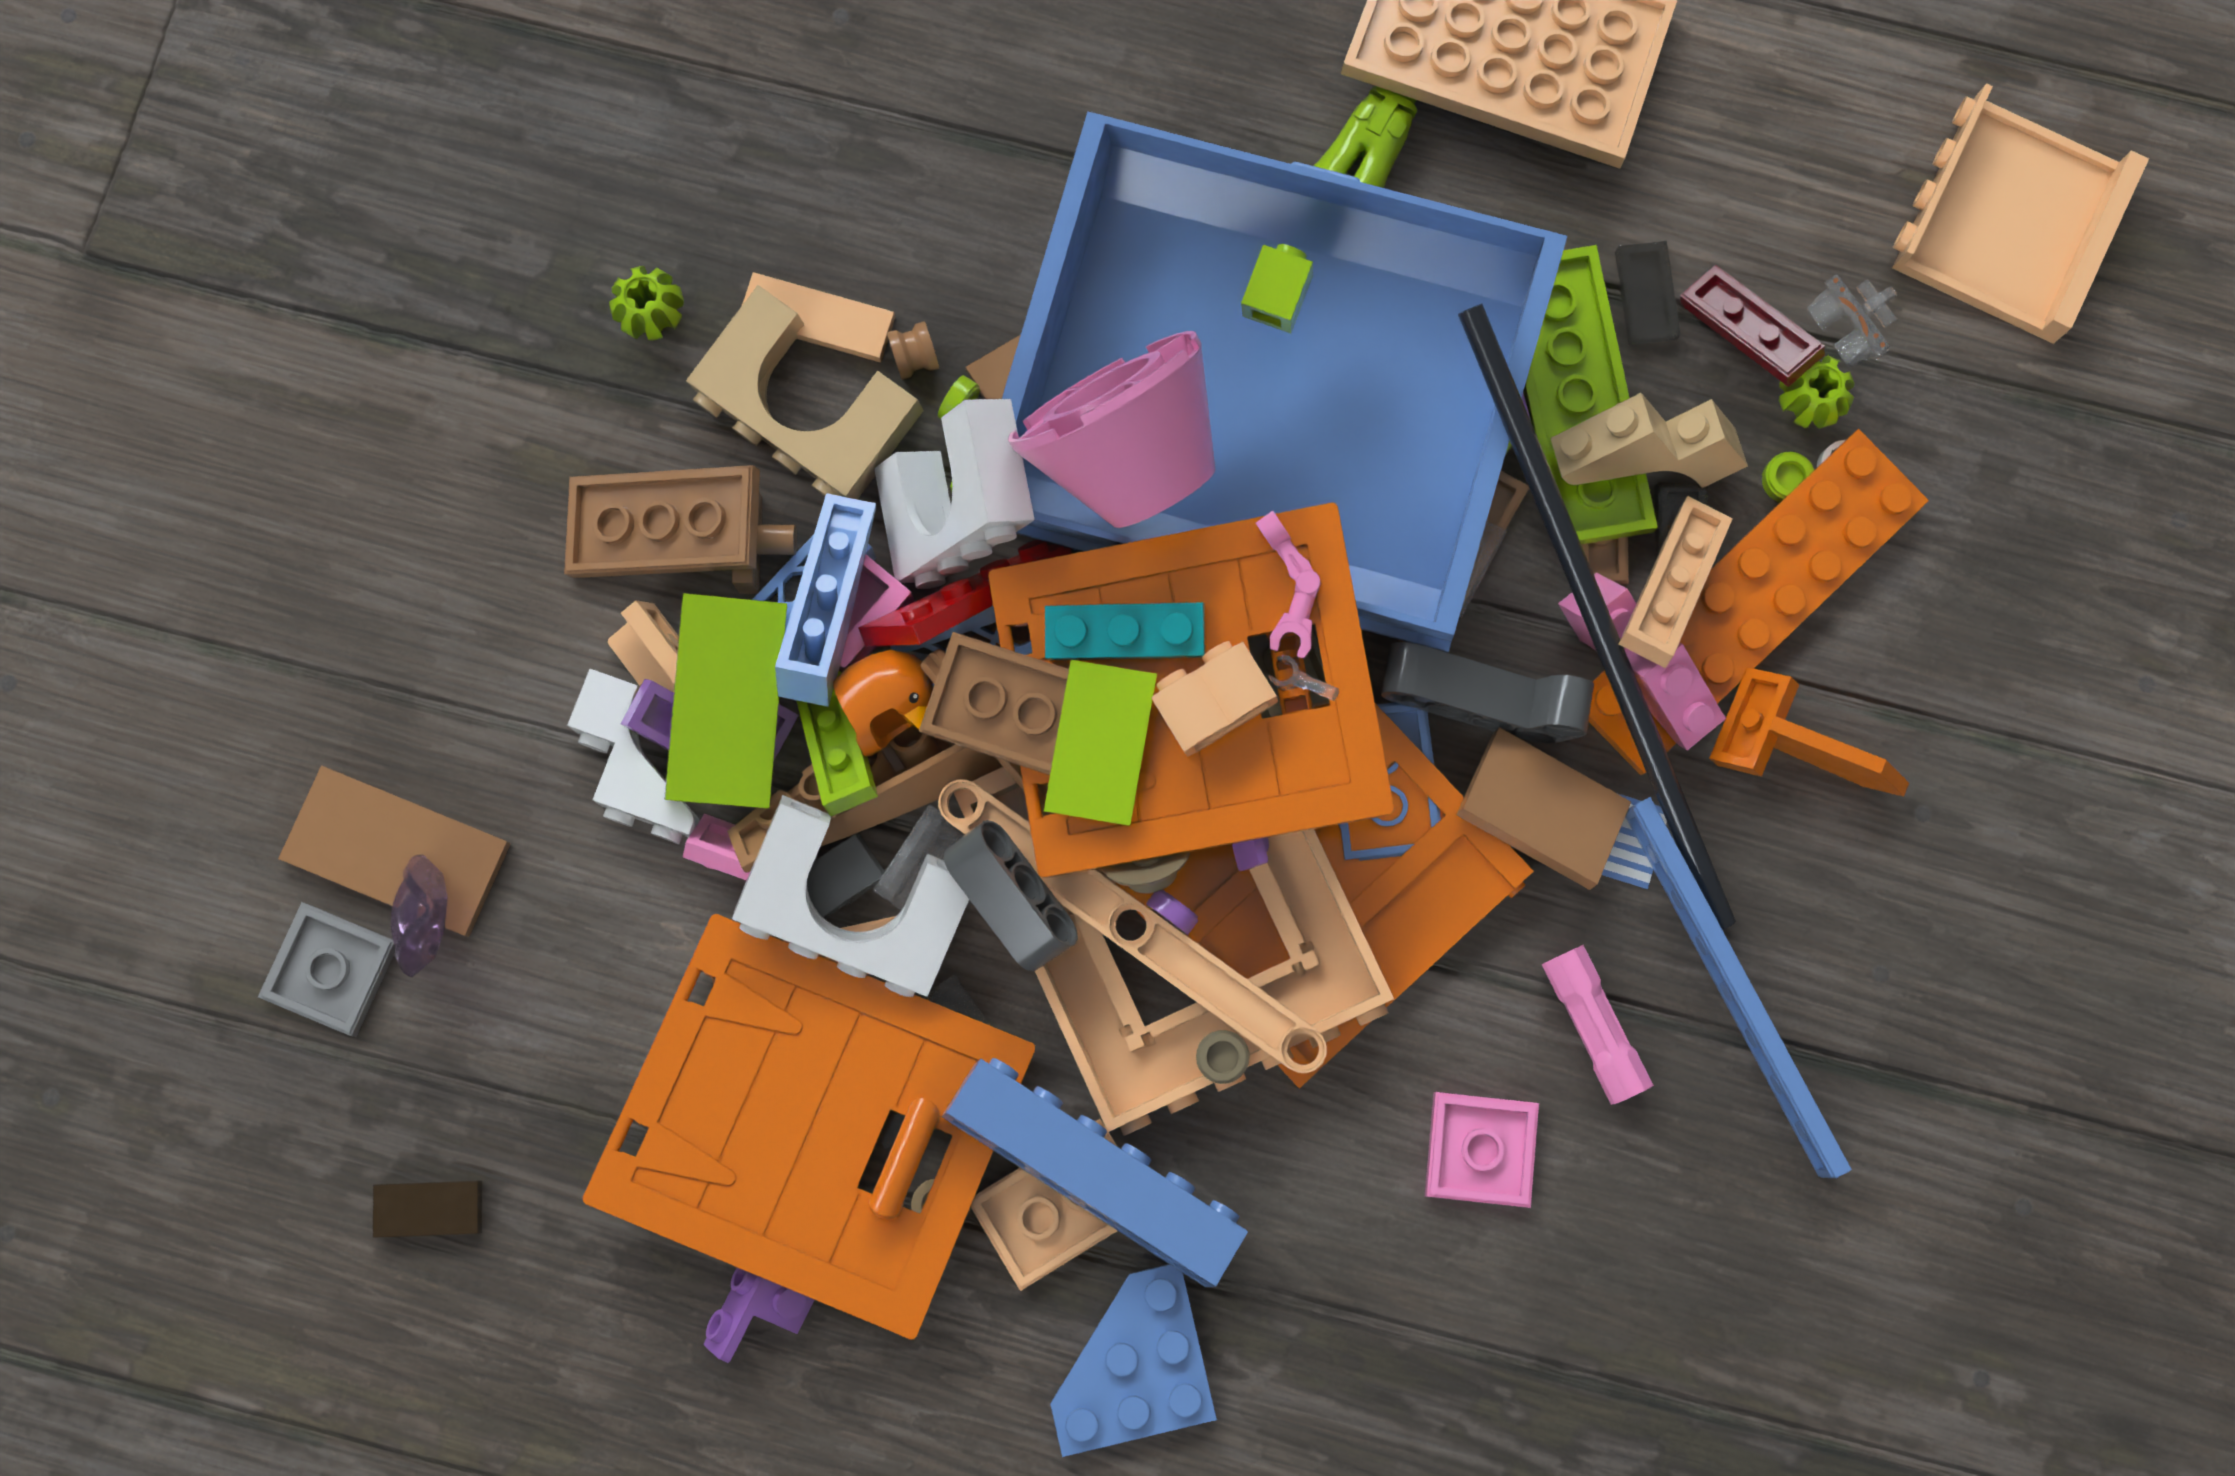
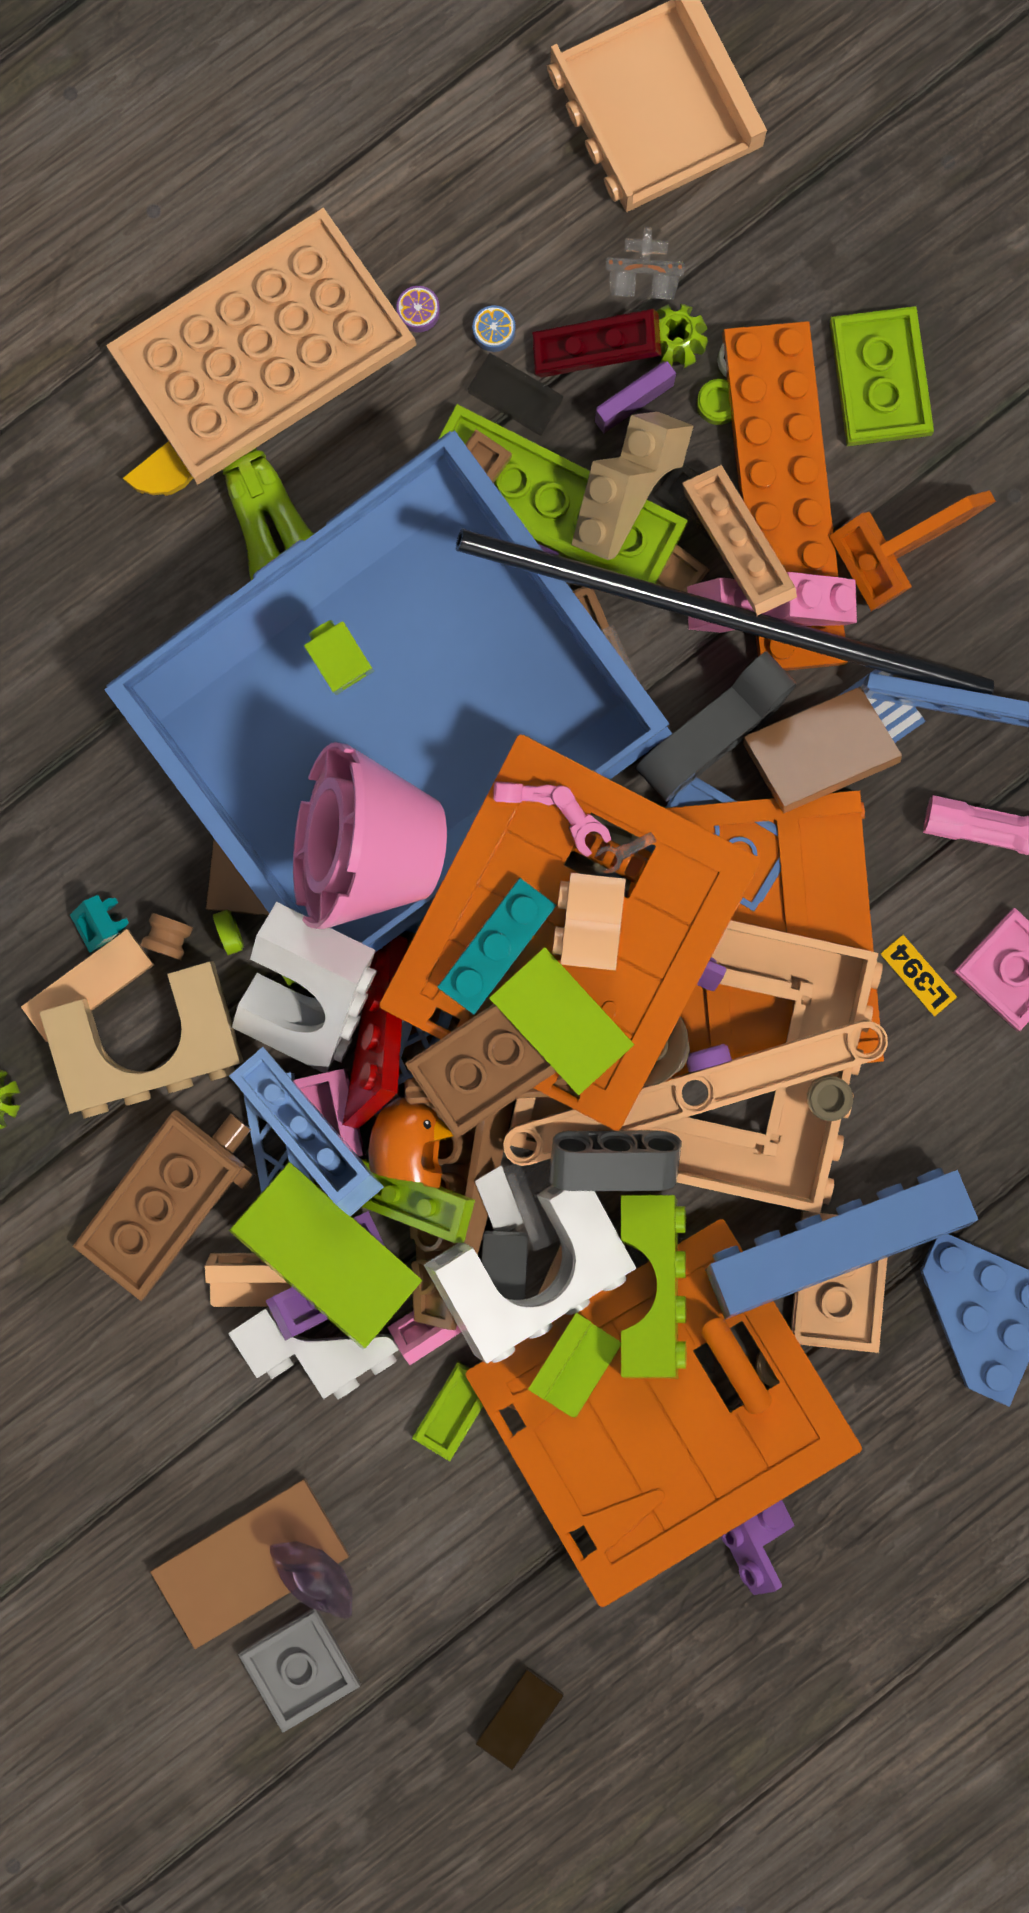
camera: 50 degrees left, 5 degrees up
(663, 931) = (450, 1415): none -> lime tile
(793, 1006) = (575, 1366): none -> lime panel
(868, 1063) = (652, 1344): none -> lime arch
(877, 278) = (95, 923): none -> teal tile
(896, 823) = (499, 1200): none -> white sticker
(1324, 39) = (160, 473): none -> yellow tile
(1405, 1062) = (918, 975): none -> yellow sticker
(1568, 304) = (489, 454): none -> medium nougat tile
(1654, 150) = (418, 308): none -> medium lavender tile
(1691, 229) = (493, 328): none -> medium blue tile
(1732, 396) = (635, 396): none -> medium lavender tile
(1933, 607) = (881, 376): none -> lime tile

